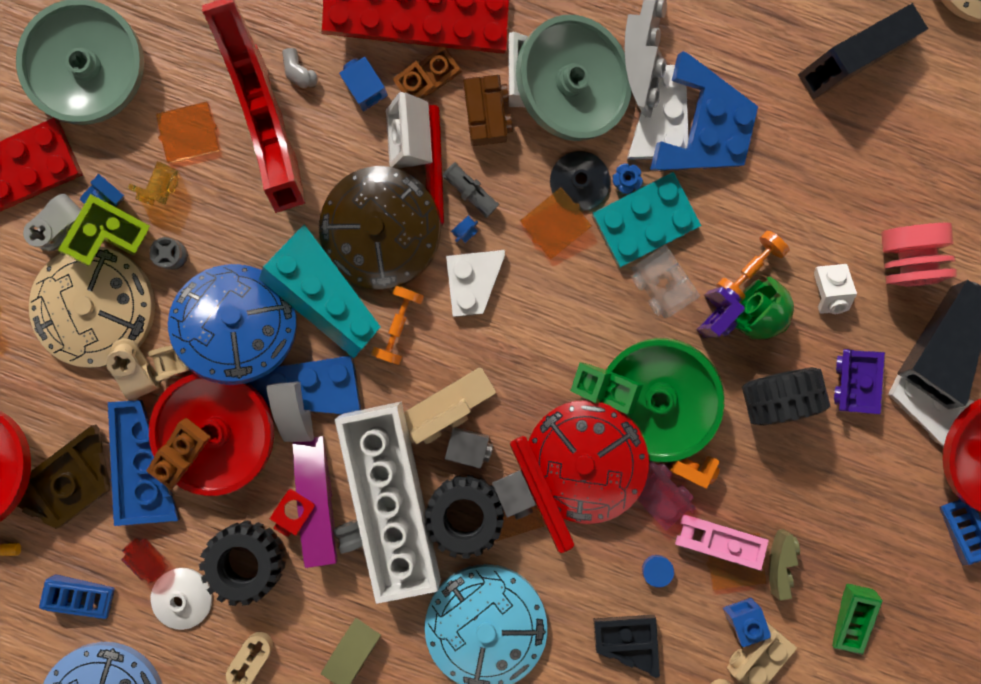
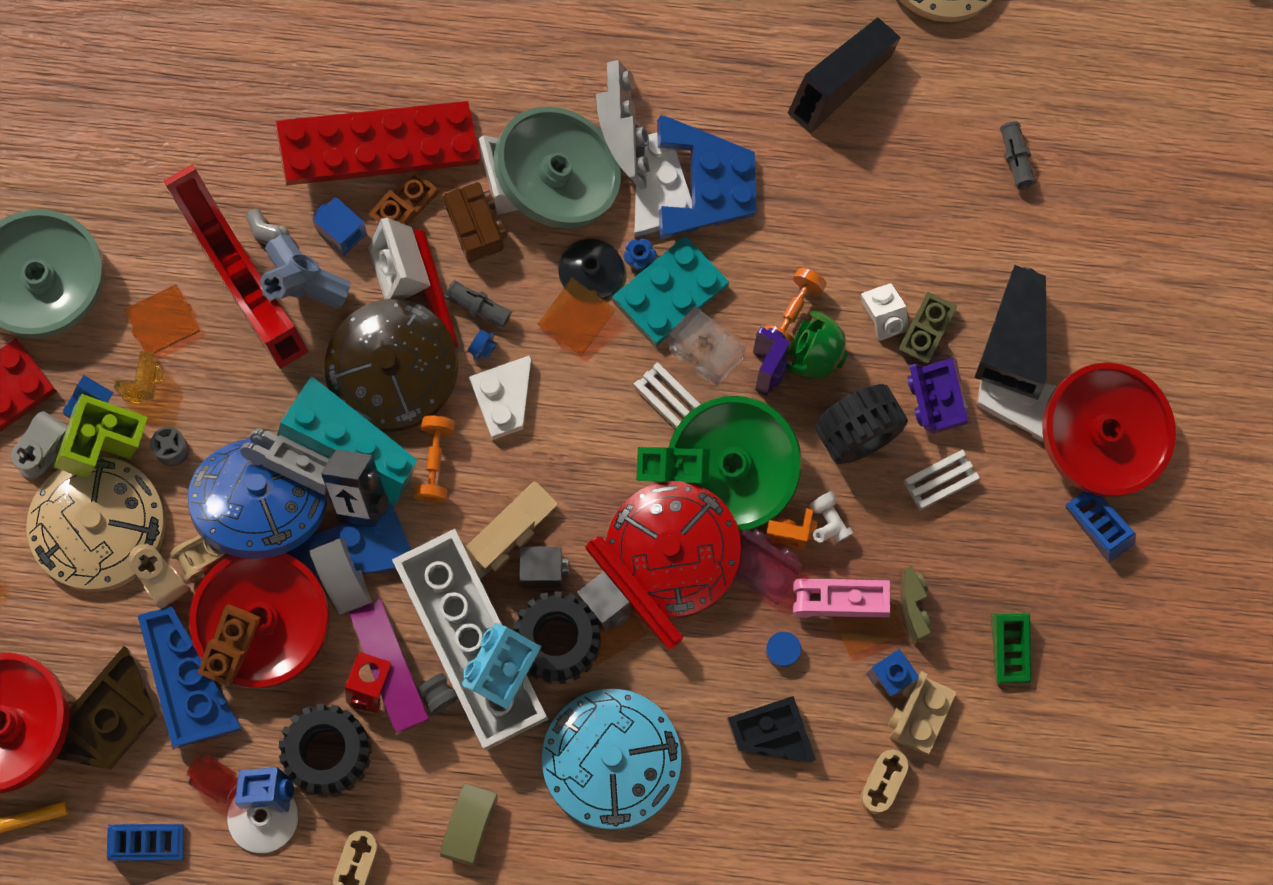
camera: 15 degrees left, 15 degrees down
(182, 583) = (264, 789): none -> blue bracket
(268, 301) = (286, 458): none -> light grey hinge
(314, 125) = (300, 276): none -> sand blue piece
(318, 340) = (355, 488): none -> black brick
(406, 542) = (500, 665): none -> medium azure bracket
(627, 311) = (649, 377): none -> white tile
(733, 479) = (835, 526): none -> white piece
(863, 450) = (965, 466): none -> white tile
(867, 313) = (927, 327): none -> olive slope
(918, 254) = (956, 251): coral wheel -> none

